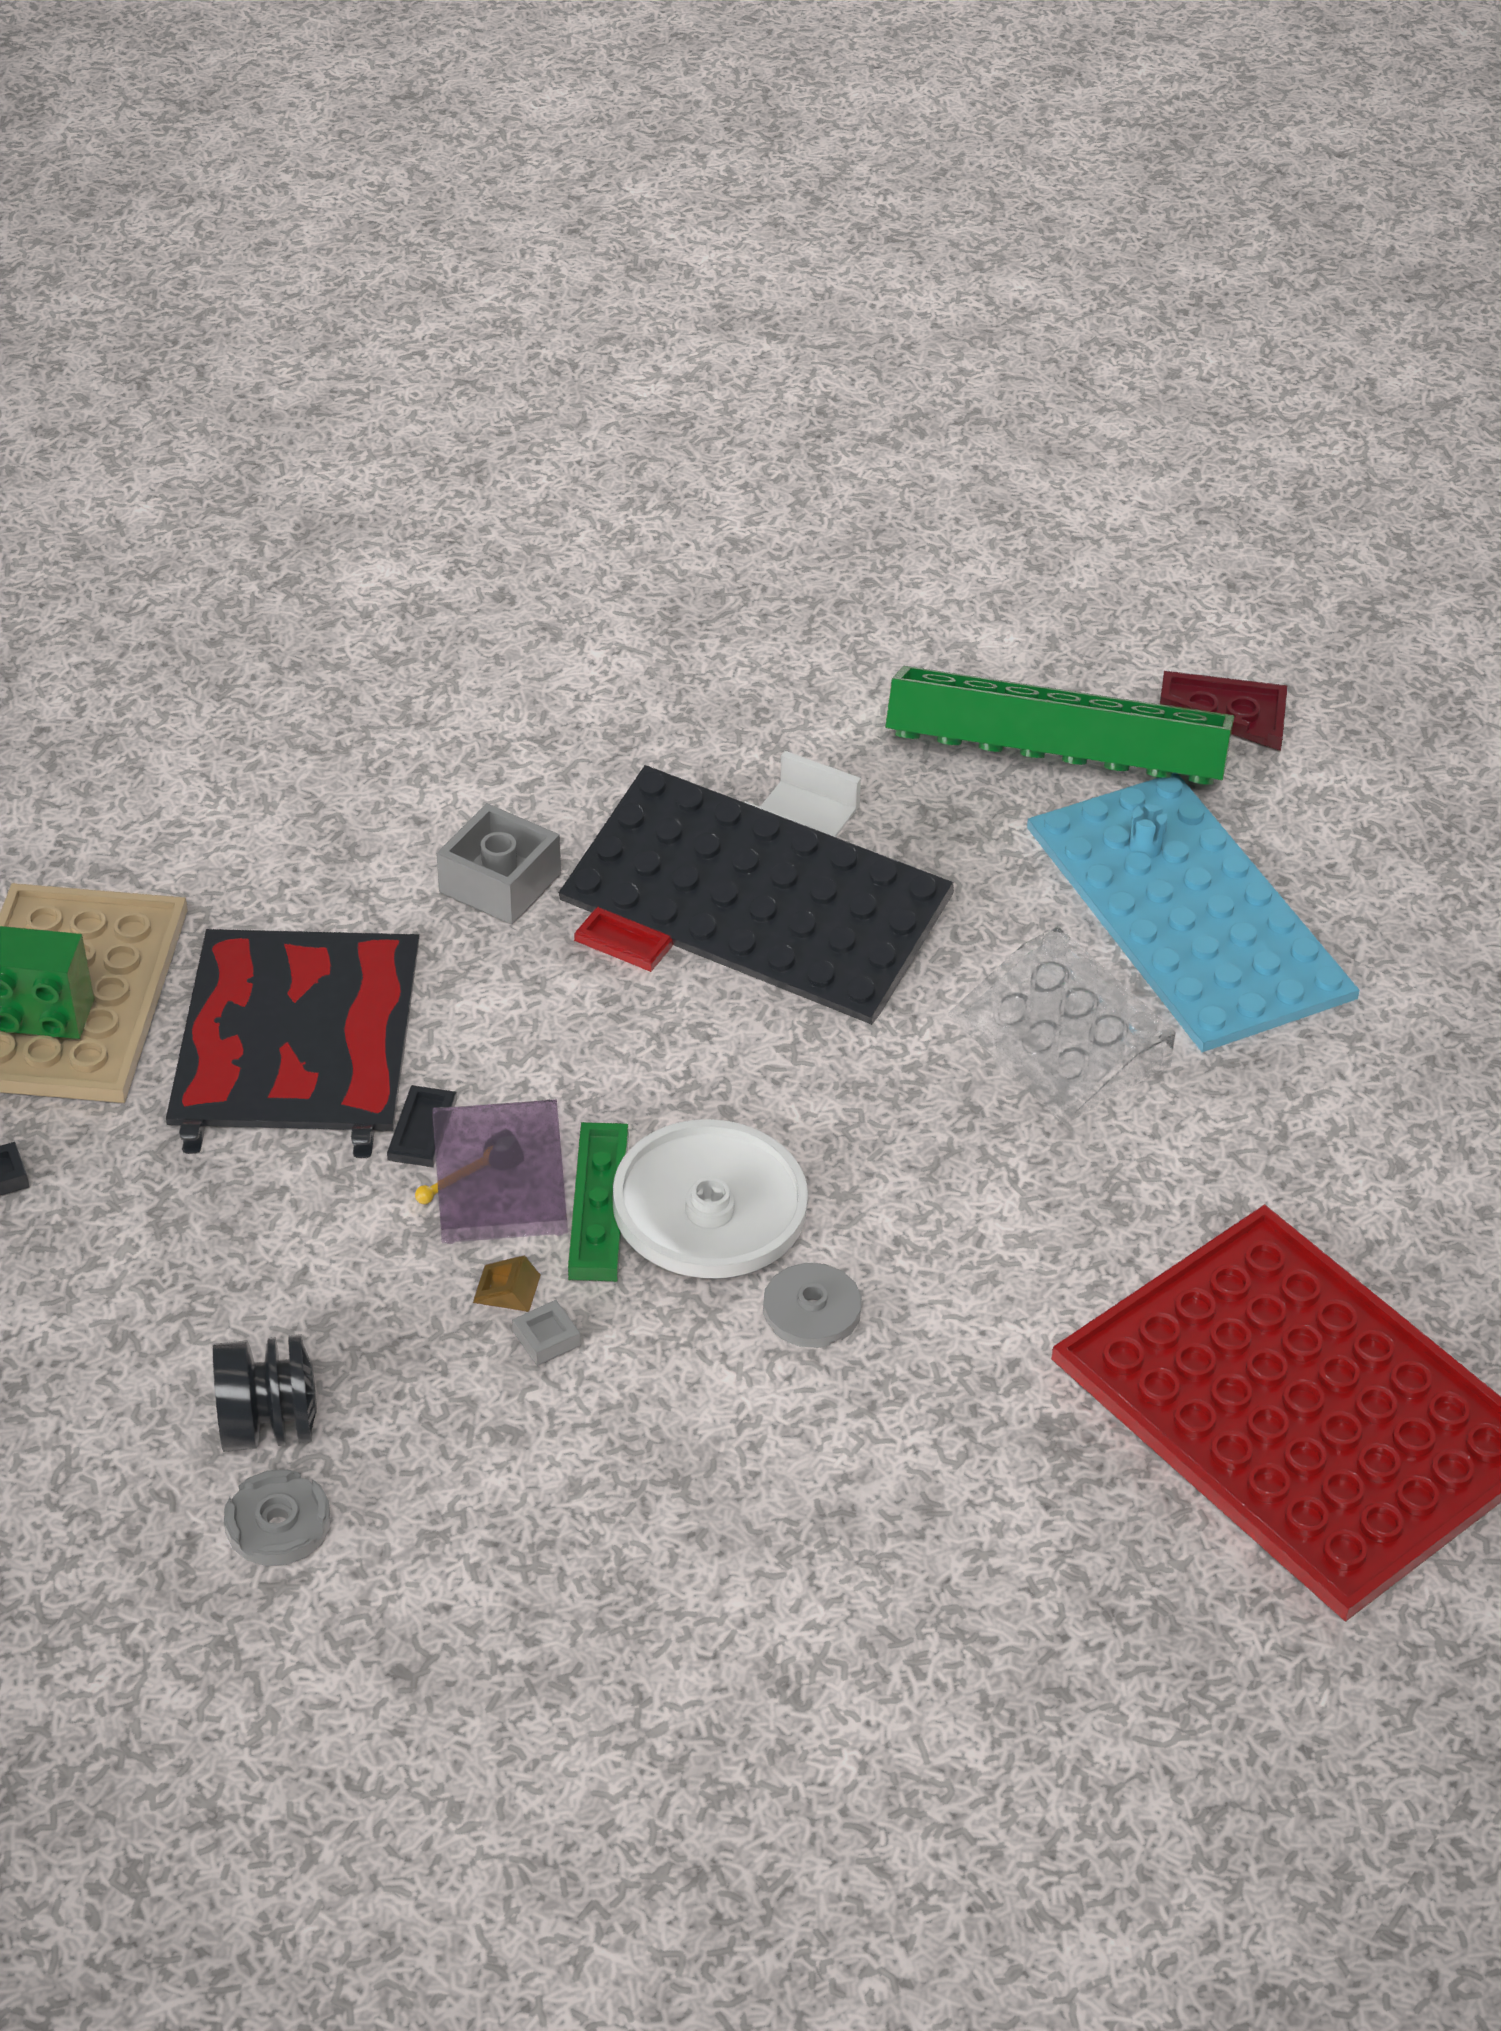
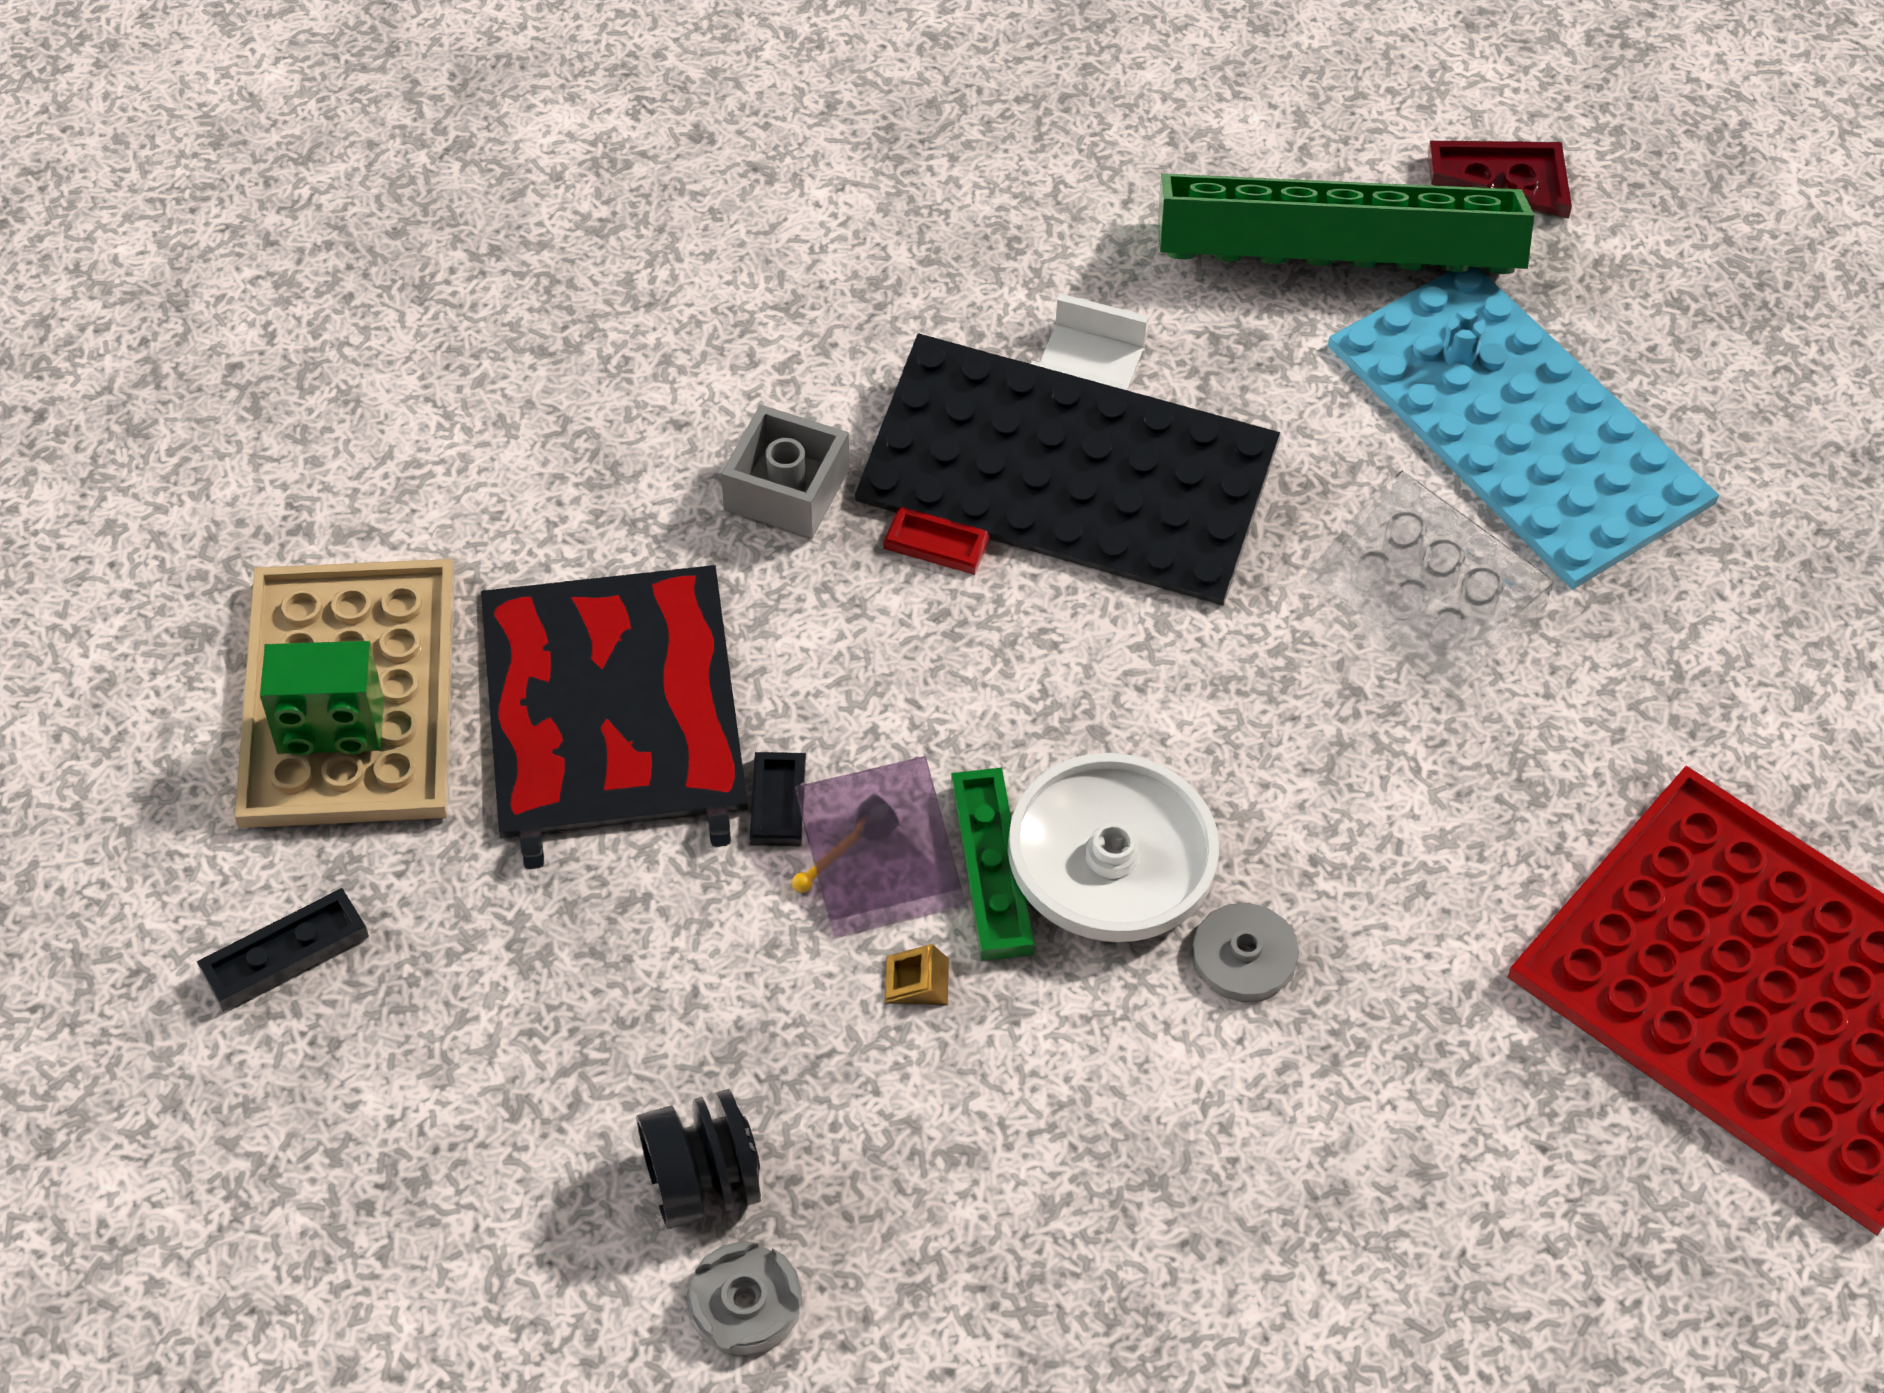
camera: 10 degrees left, 10 degrees up
(546, 1332) = (976, 1030): light grey plate -> none

